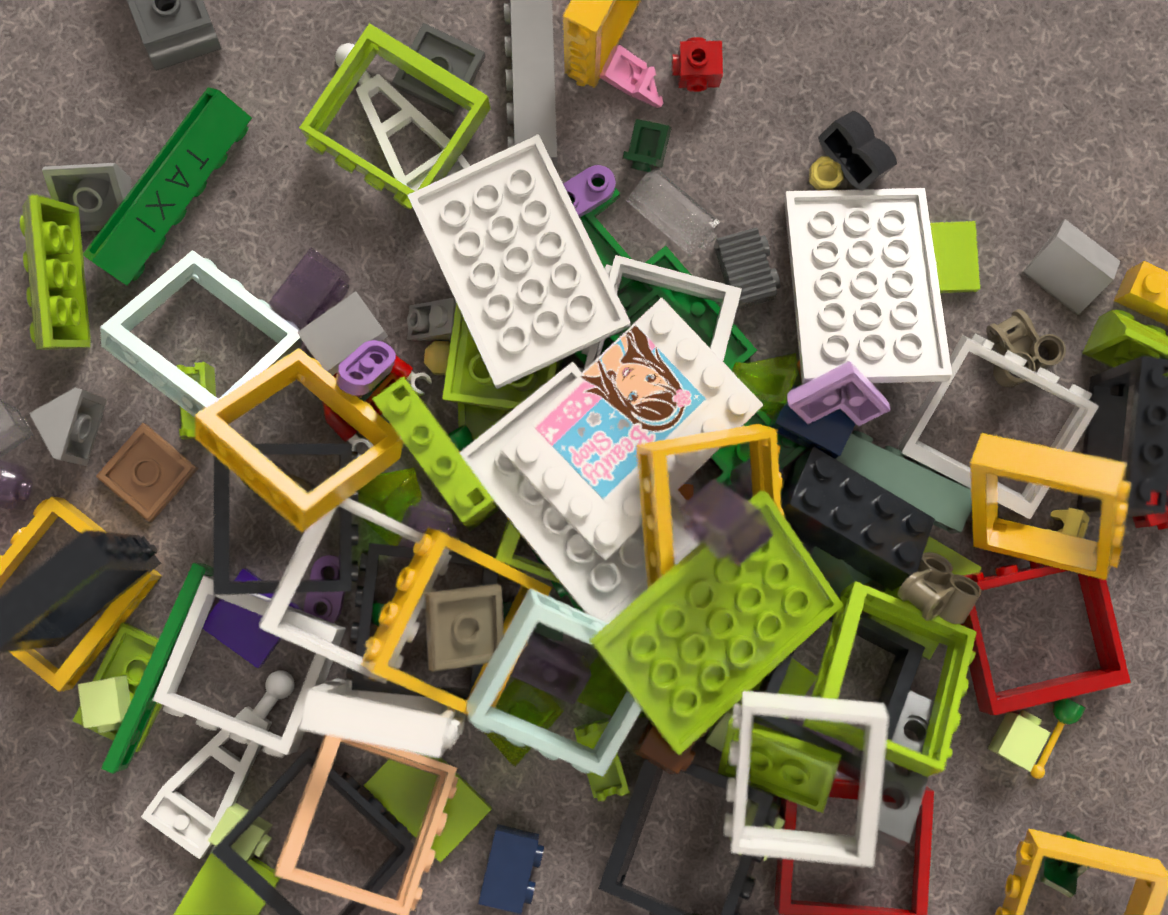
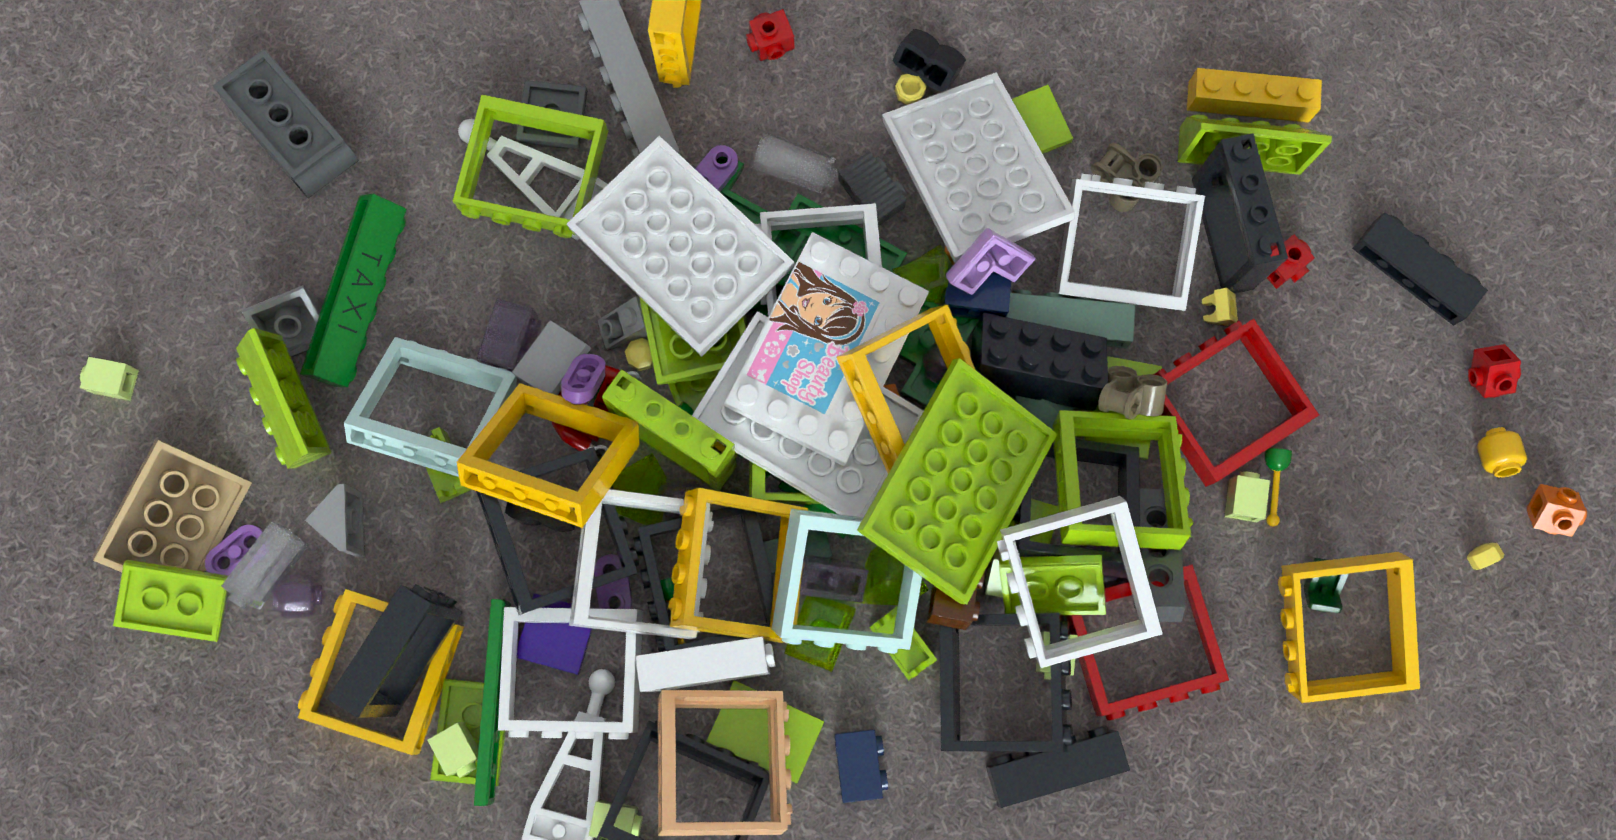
camera: 20 degrees left, 5 degrees down
(147, 472) = (420, 542): medium nougat tile -> none
(463, 626) = (746, 562): dark tan tile -> none
(631, 76) = (717, 64): bright pink slope -> none
(648, 145) = (752, 116): dark green bracket -> none
(725, 523) = (934, 391): brick -> none
(1053, 469) = (1186, 253): yellow window -> none
(1072, 267) = (1142, 95): light grey slope -> none

